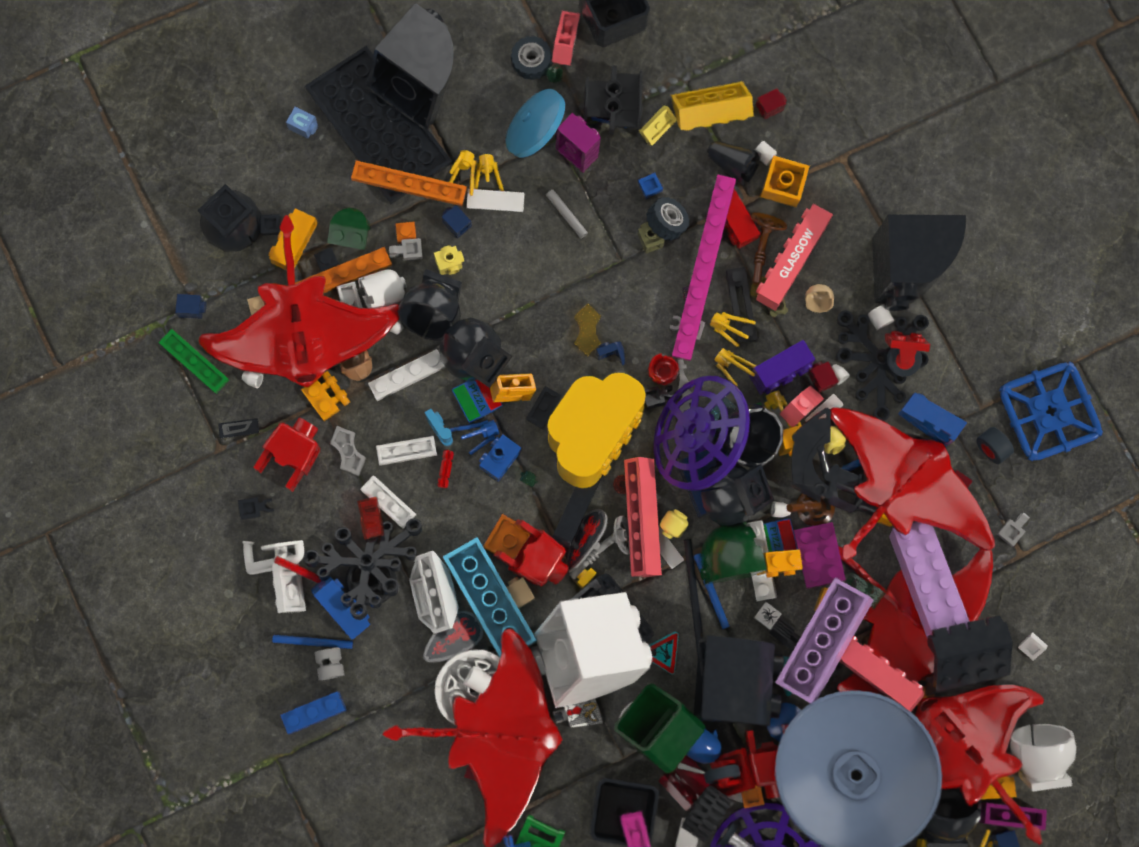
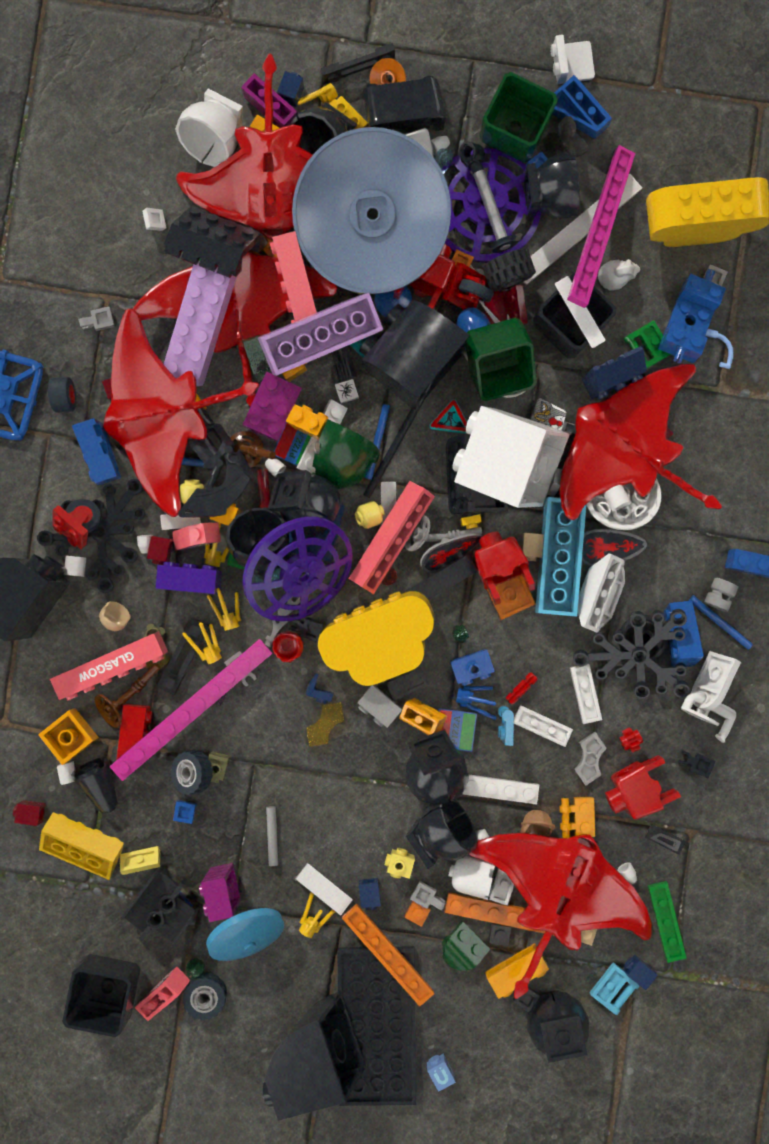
camera: 140 degrees left, 10 degrees up
(207, 280) = (610, 985): none -> medium azure plate
(297, 569) = (701, 689): red bar -> none
(324, 488) = (631, 740): none -> red gear
(370, 517) = (609, 689): clear red slope -> none
(464, 161) = (327, 941): yellow plant -> none
(550, 791) = (615, 373): none -> dark blue wedge
(554, 373) = (379, 705): none -> light grey brick
(615, 810) = (581, 315): none -> white sticker
(776, 485) = (263, 488): none -> dark red pin

